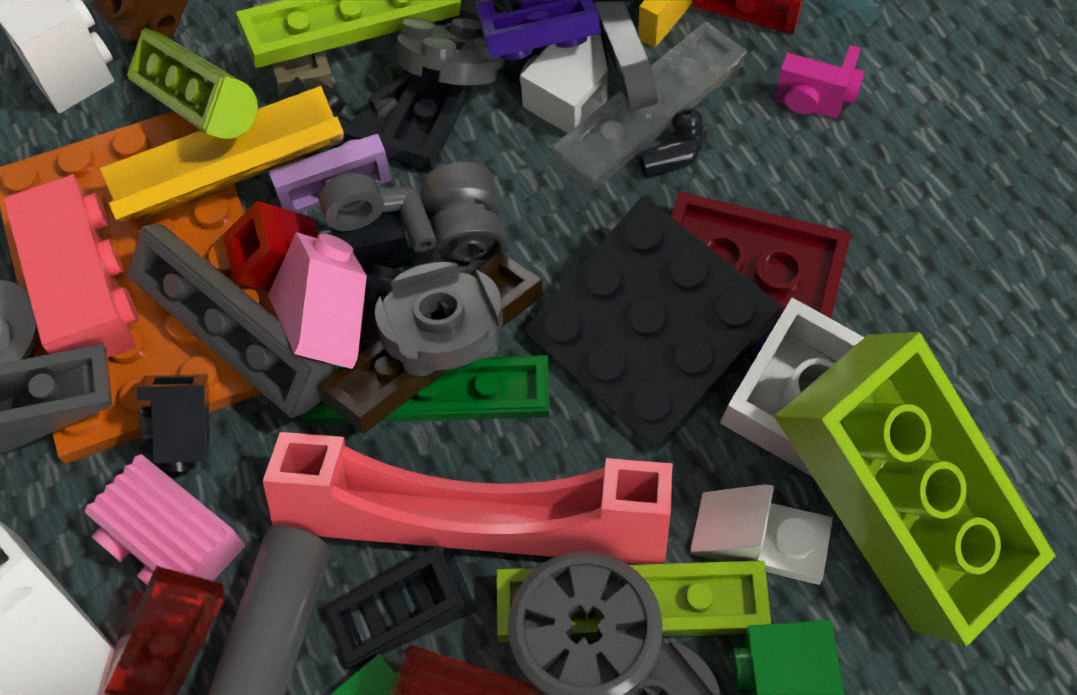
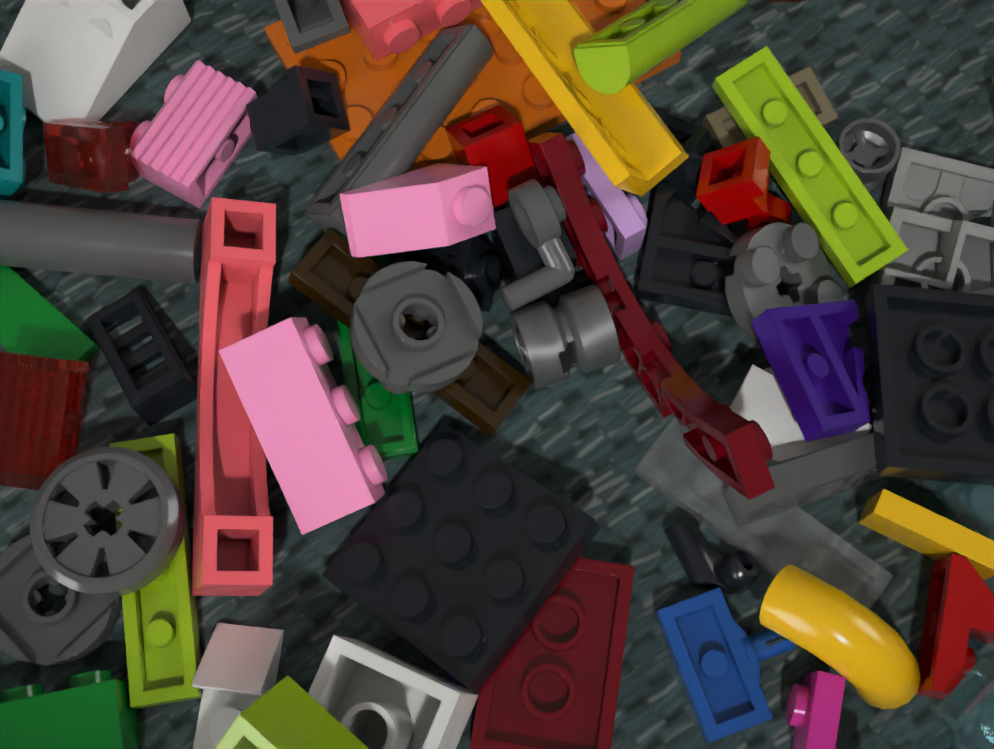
camera: 80 degrees right, 10 degrees up
(354, 59) = (736, 185): none -> red piece
(511, 428) = (305, 422): none -> bright pink brick
(575, 100) = (717, 436): none -> dark red plate
(750, 51) = (842, 636): none -> yellow cylinder
(763, 148) = (718, 663): none -> blue plate

